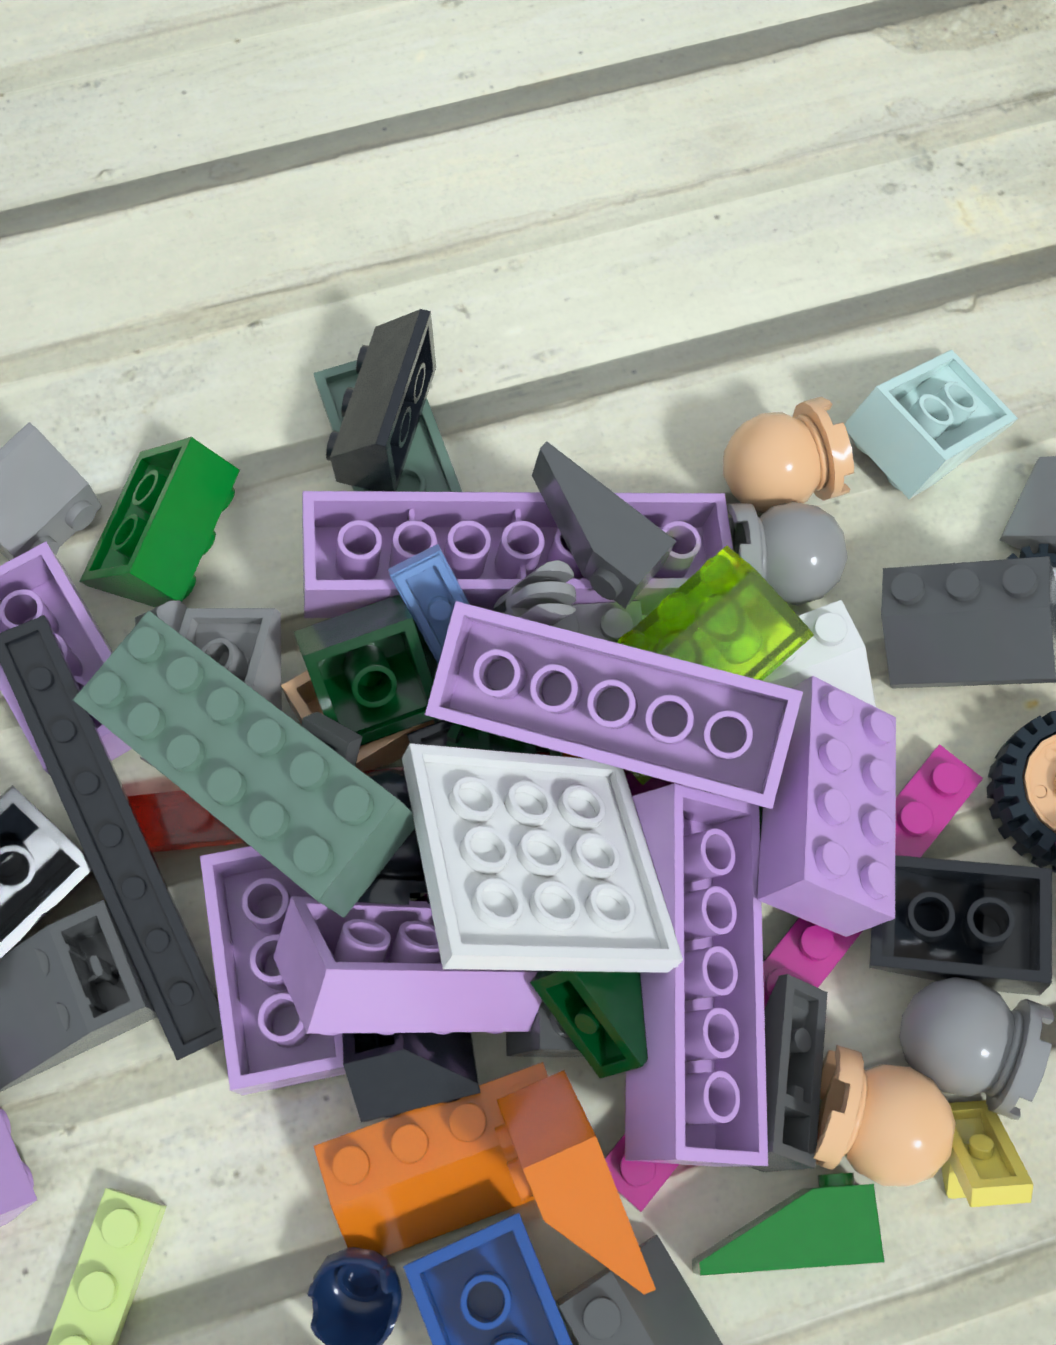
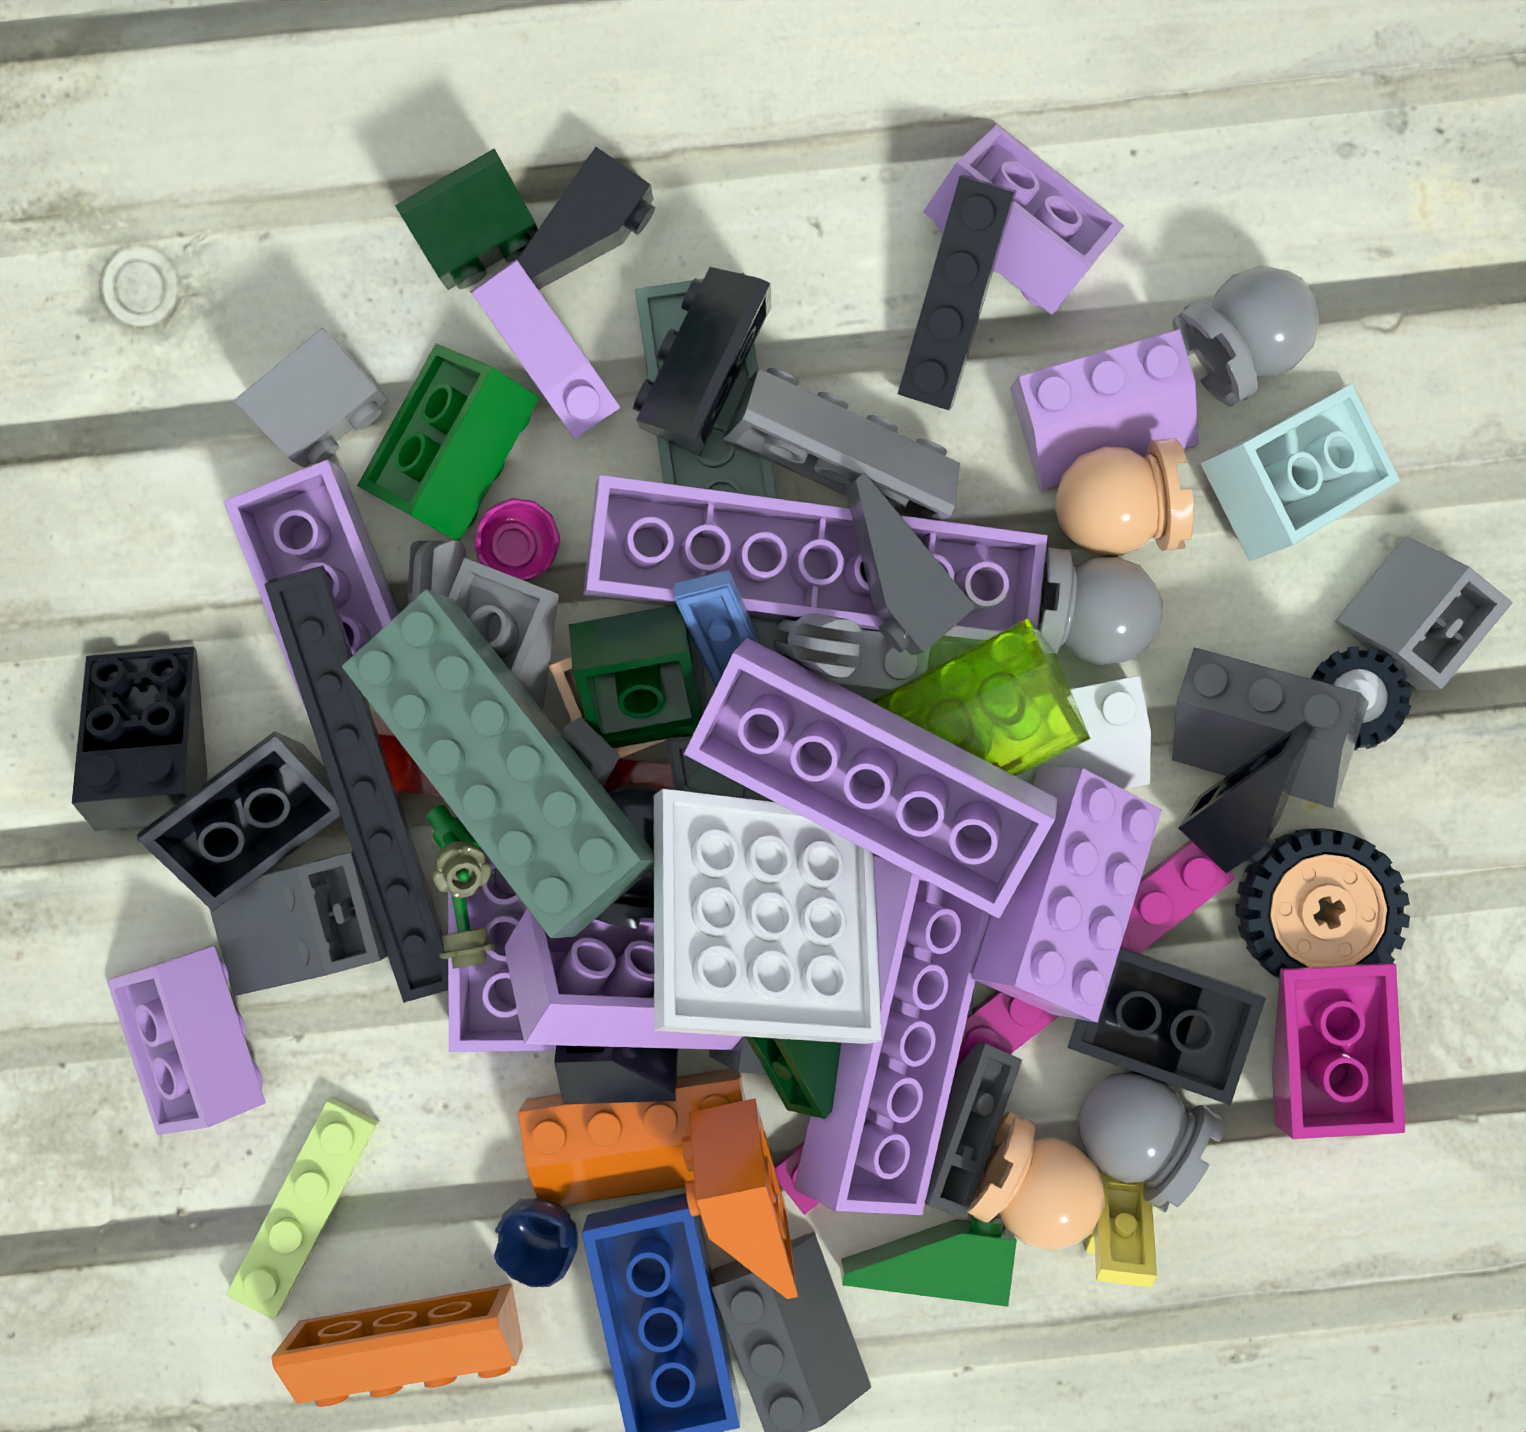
camera: 10 degrees right, 20 degrees up
(156, 336) = (469, 221): none -> dark green slope
(214, 869) = (460, 871): none -> olive plant
(235, 581) = (517, 539): none -> dark pink hair
(240, 427) = (545, 349): none -> lavender slope
(258, 335) = (588, 220): none -> black slope
(499, 453) = (836, 446): none -> light grey slope
(595, 323) = (956, 291): none -> black plate
(635, 272) = (1052, 227): none -> lavender slope
(738, 383) = (1107, 400): none -> lavender slope
(851, 314) = (1253, 329): none -> light grey tile
(974, 702) = (1241, 810): none -> black slope

